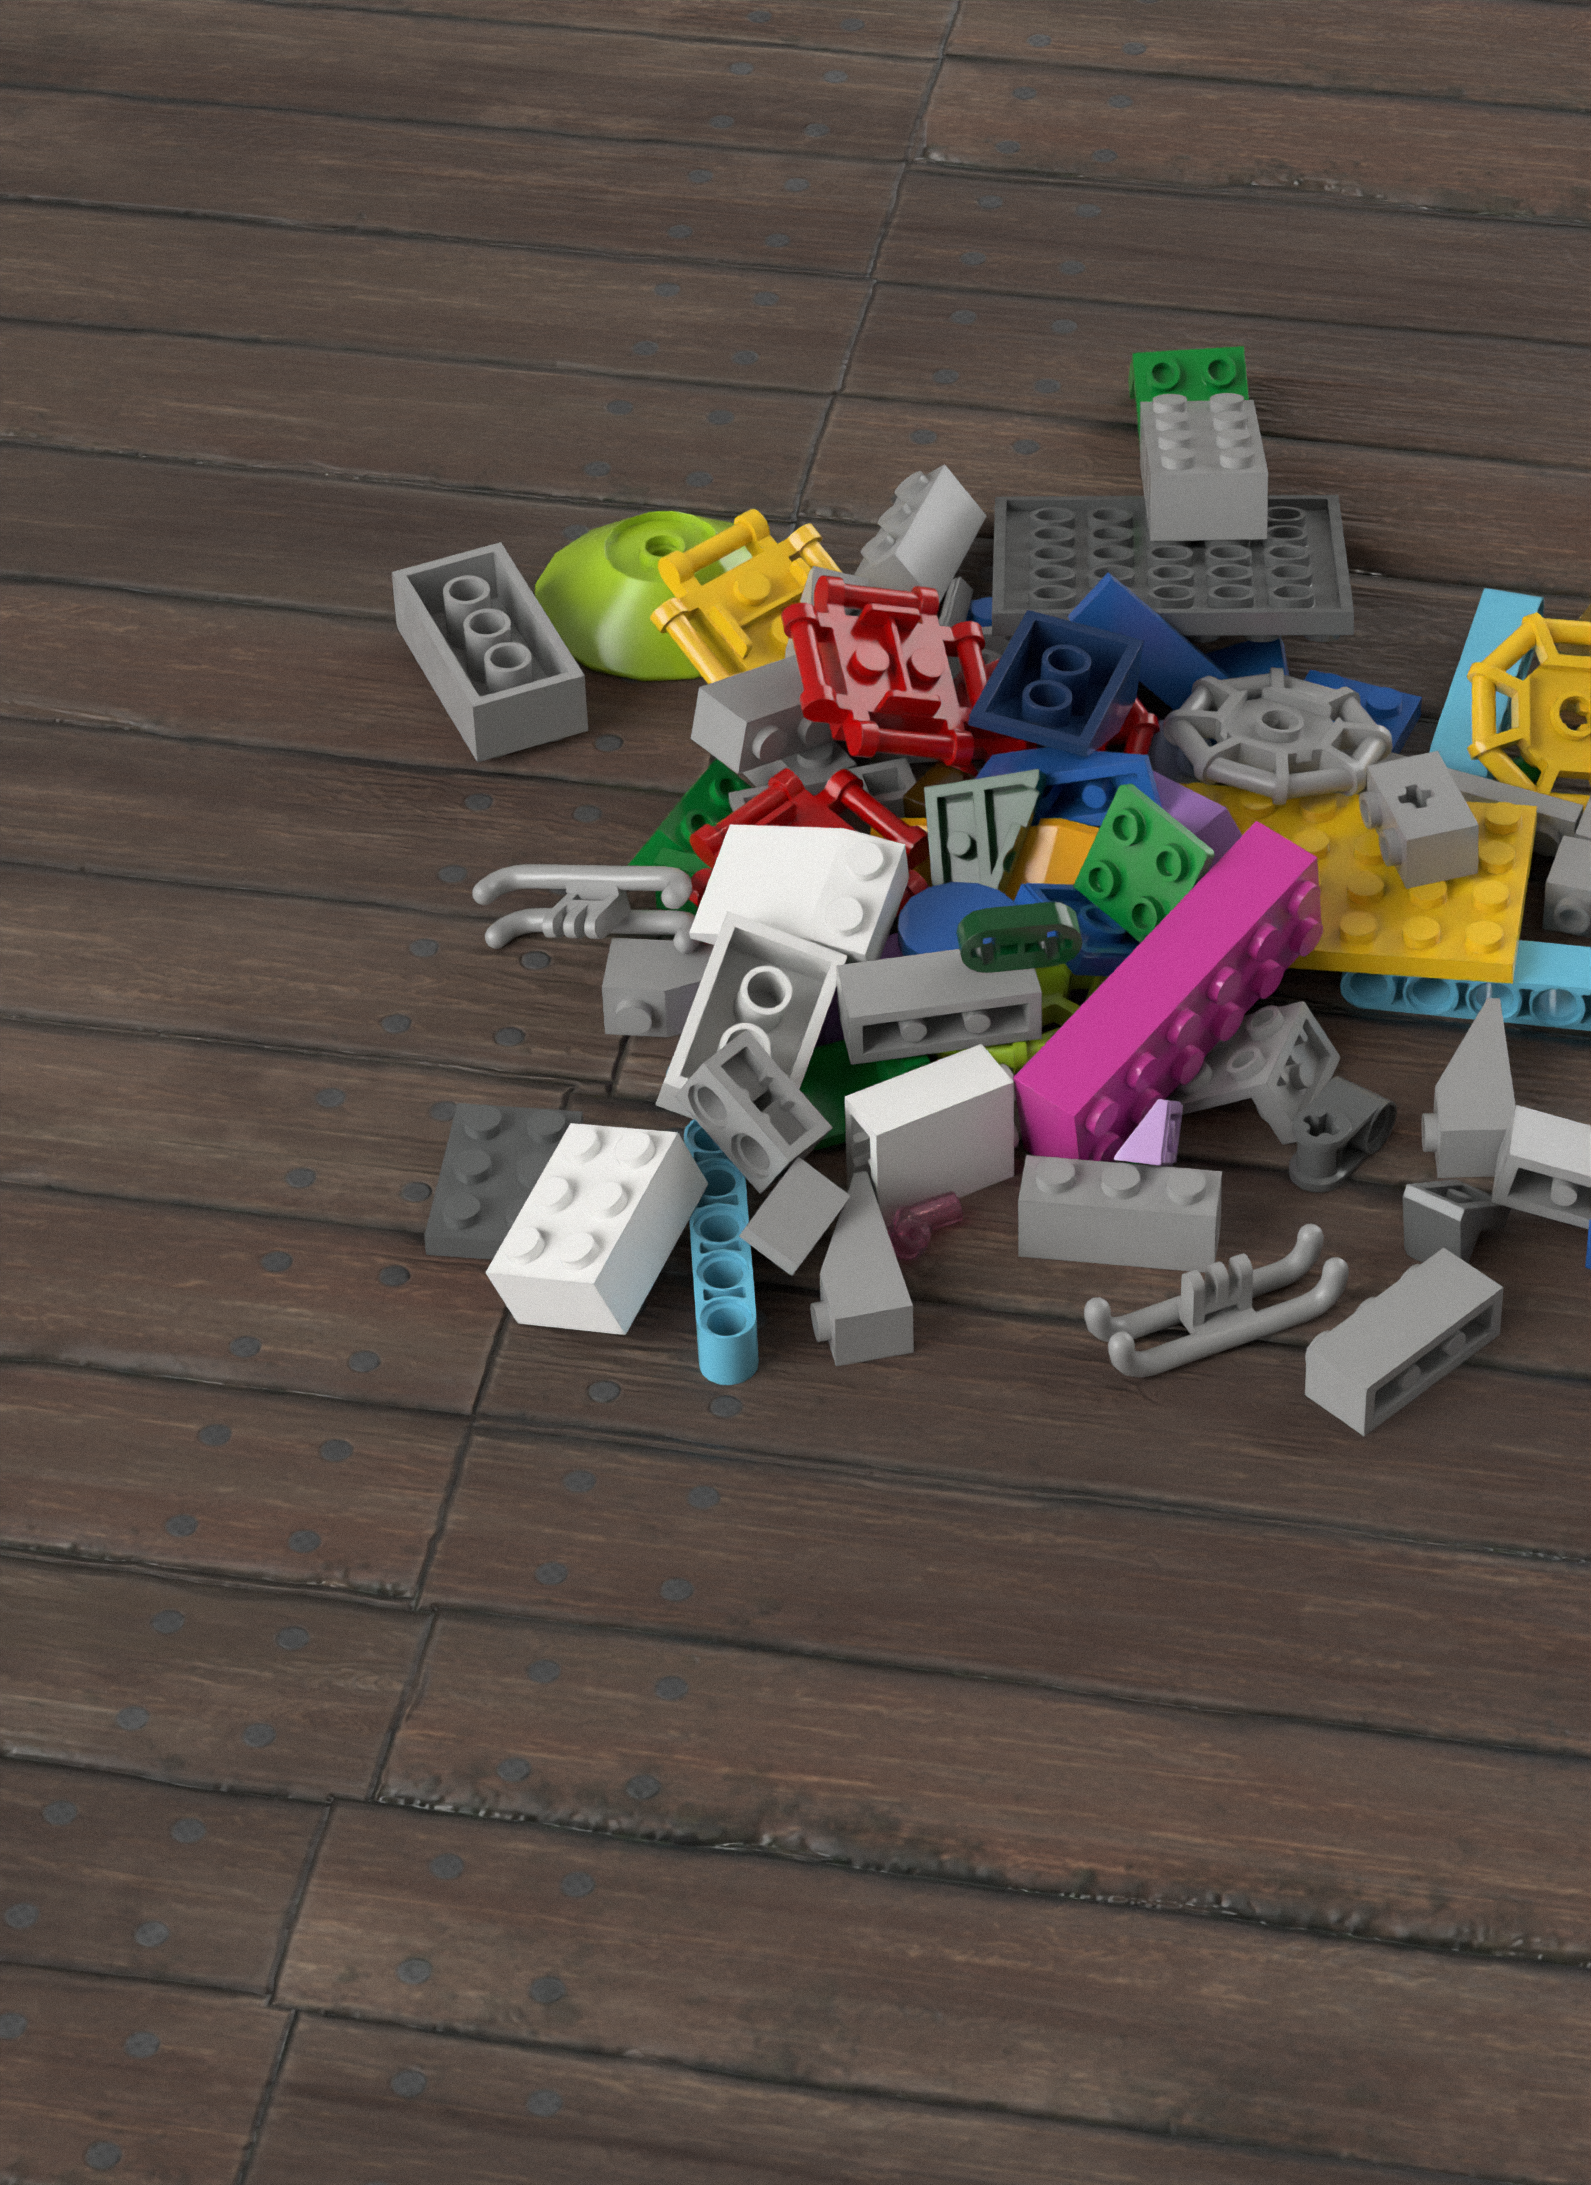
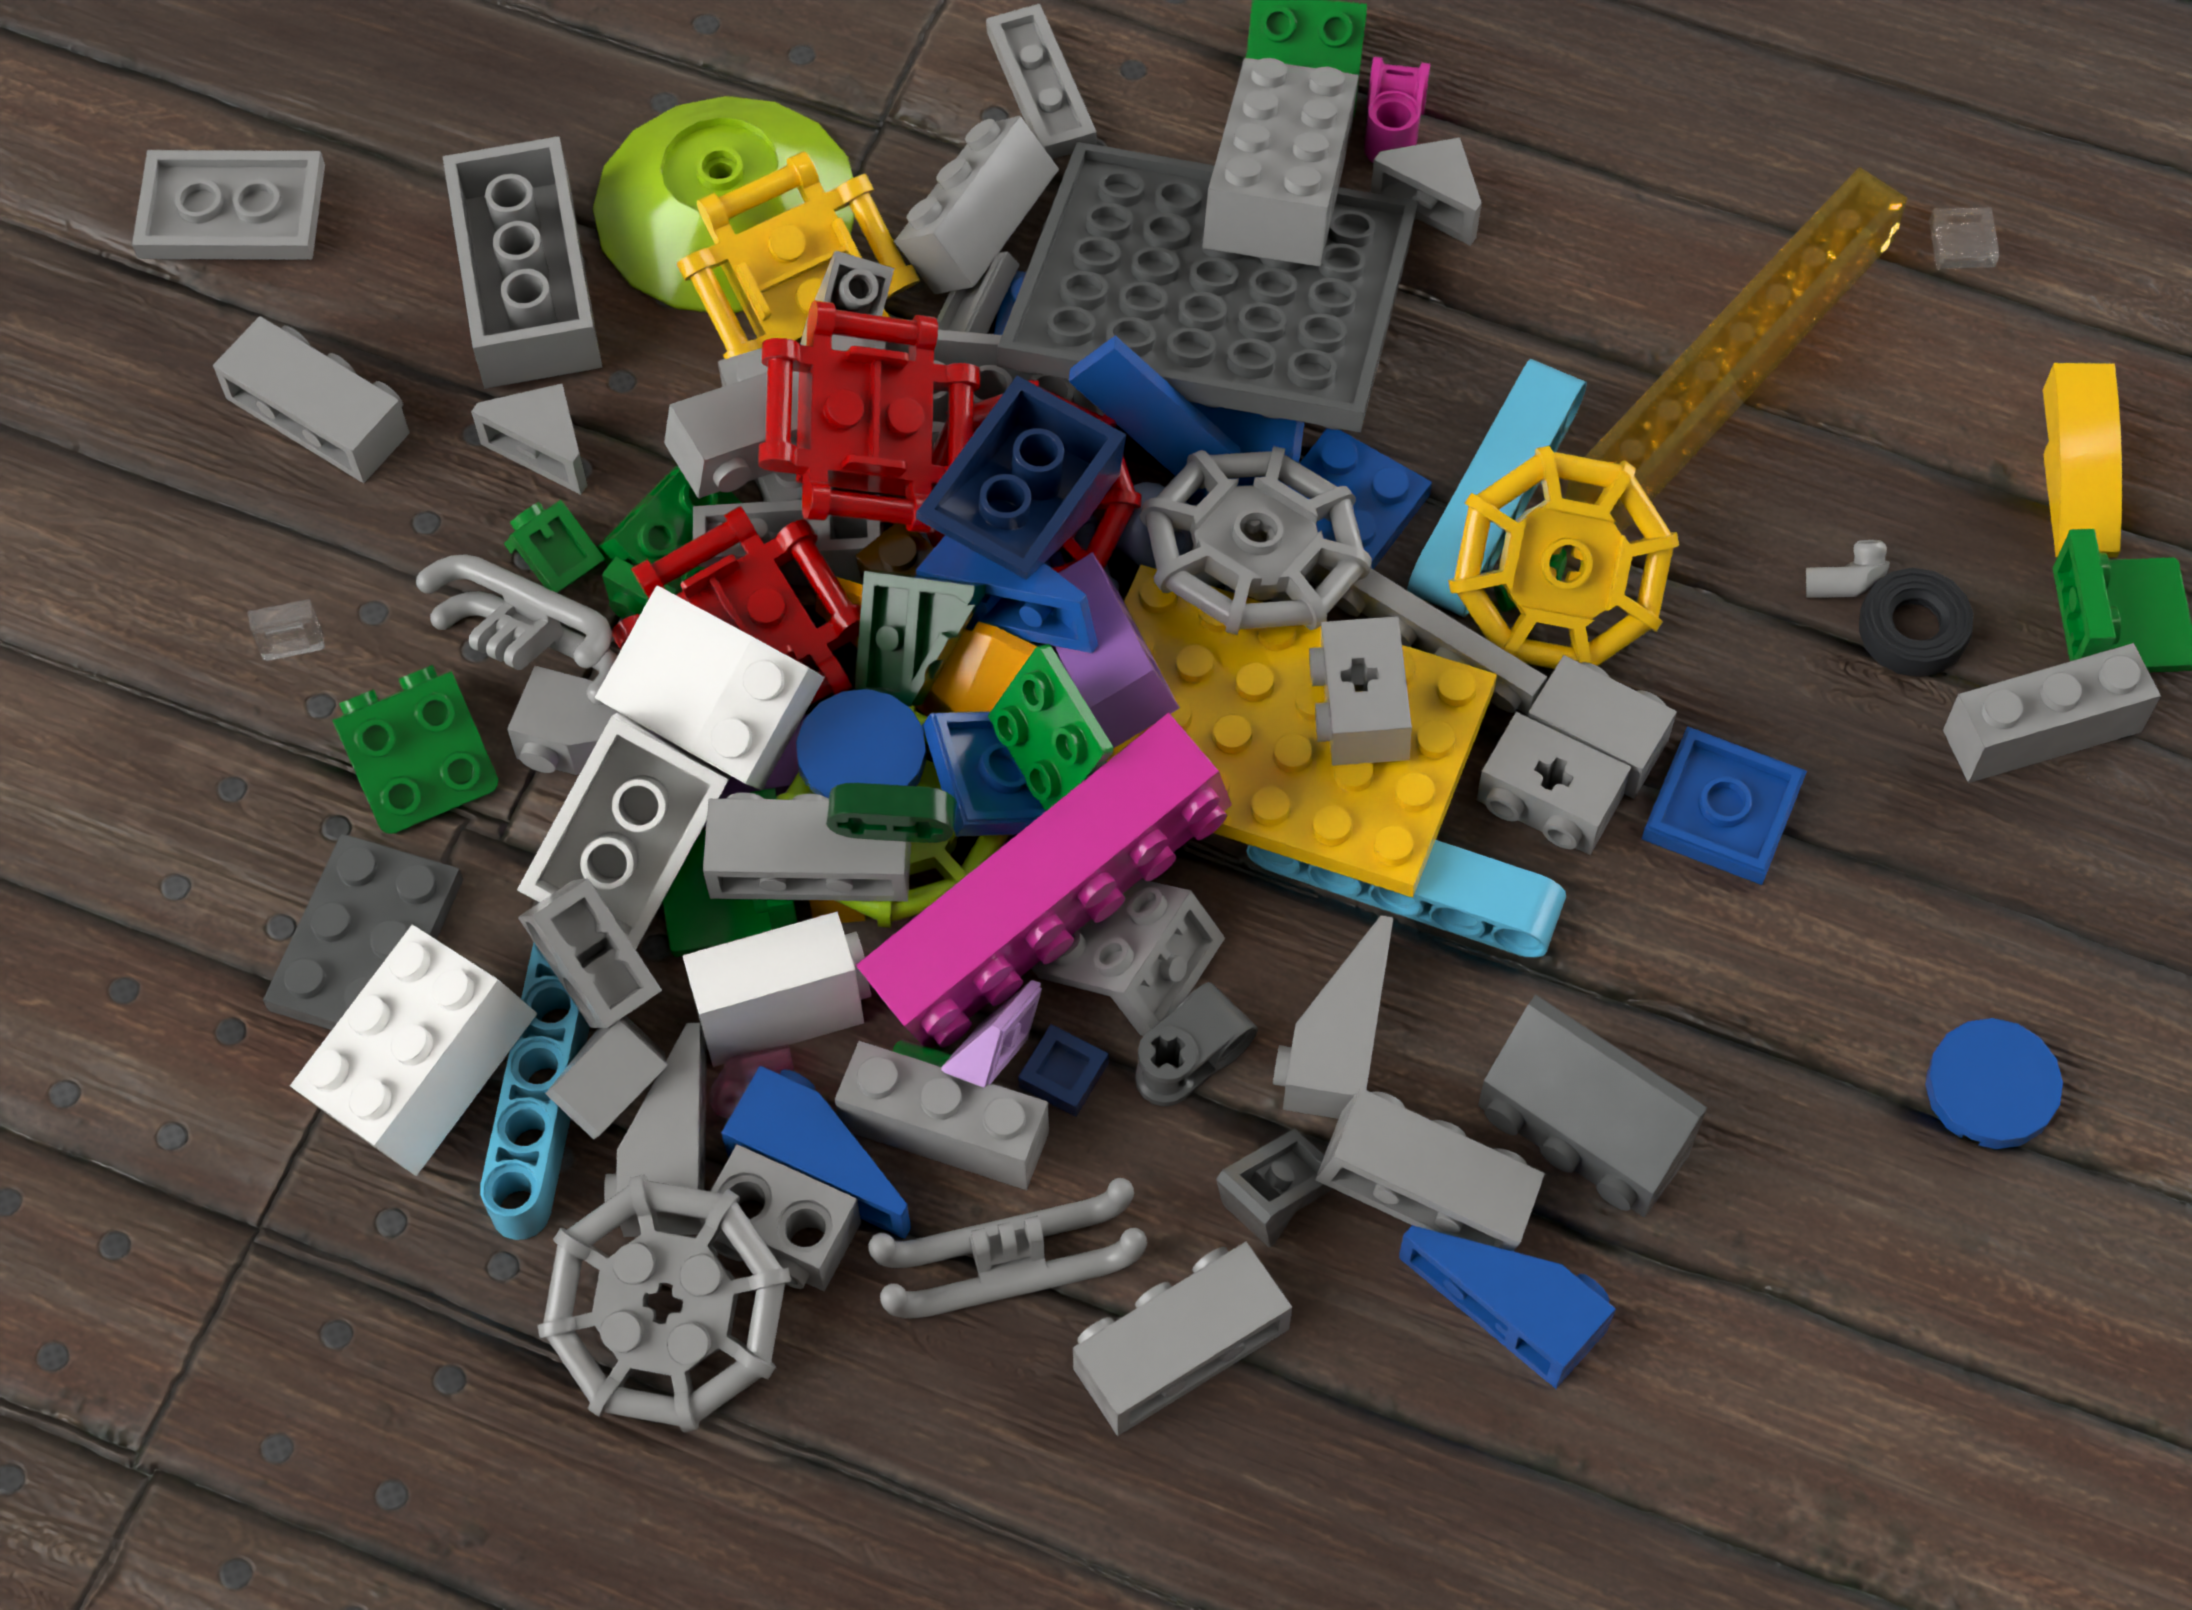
camera: 10 degrees right, 20 degrees up
(177, 658) = (229, 204): none -> light grey plate
(313, 787) = (312, 398): none -> light grey brick
(350, 959) = (286, 630): none -> clear tile
(509, 1027) = (415, 749): none -> green bracket
(544, 782) = (534, 432): none -> light grey slope
(588, 845) = (553, 545): none -> green bracket
(908, 1345) = (631, 1326): none -> light grey plate
(929, 441) = (1040, 80): none -> light grey plate
(989, 1314) = (790, 1204): none -> light grey brick
(1003, 1261) = (798, 1128): none -> blue slope
(1235, 1159) = (1063, 1070): none -> dark blue plate
(1291, 436) = (1394, 106): none -> dark pink piece
(1356, 473) = (1437, 178): none -> light grey slope

